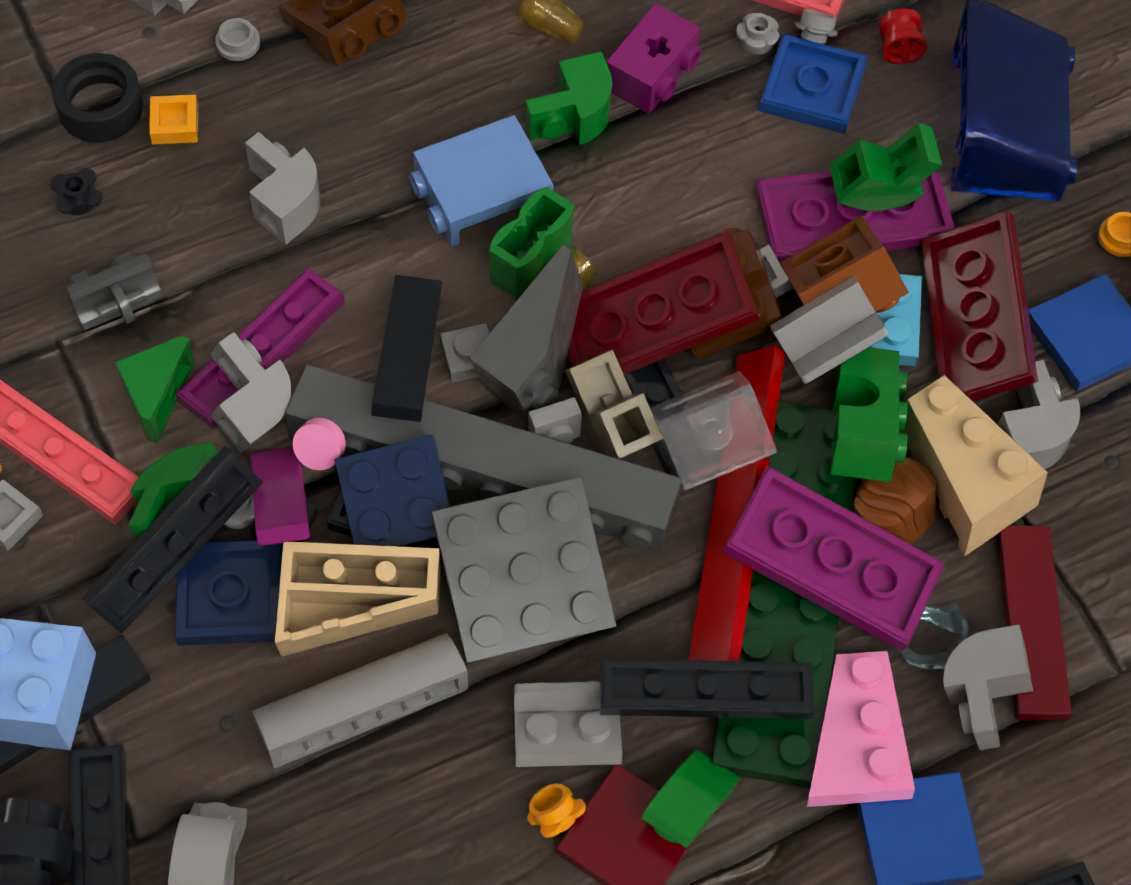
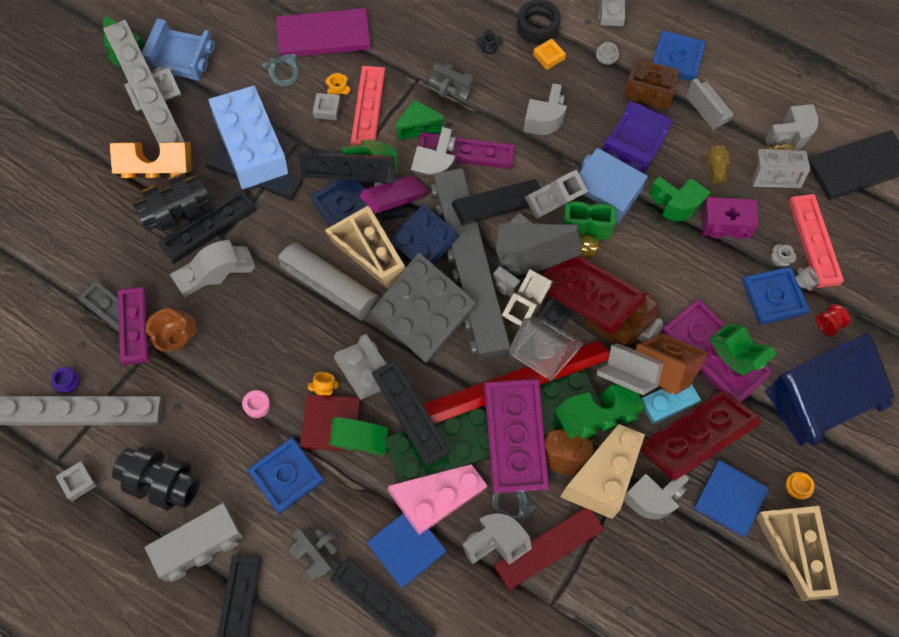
camera: 60 degrees right, 5 degrees up
(319, 443) = (429, 194): bright pink tile -> none
(423, 91) = (637, 136): none -> dark purple panel
(453, 253) = (556, 194): none -> light grey brick

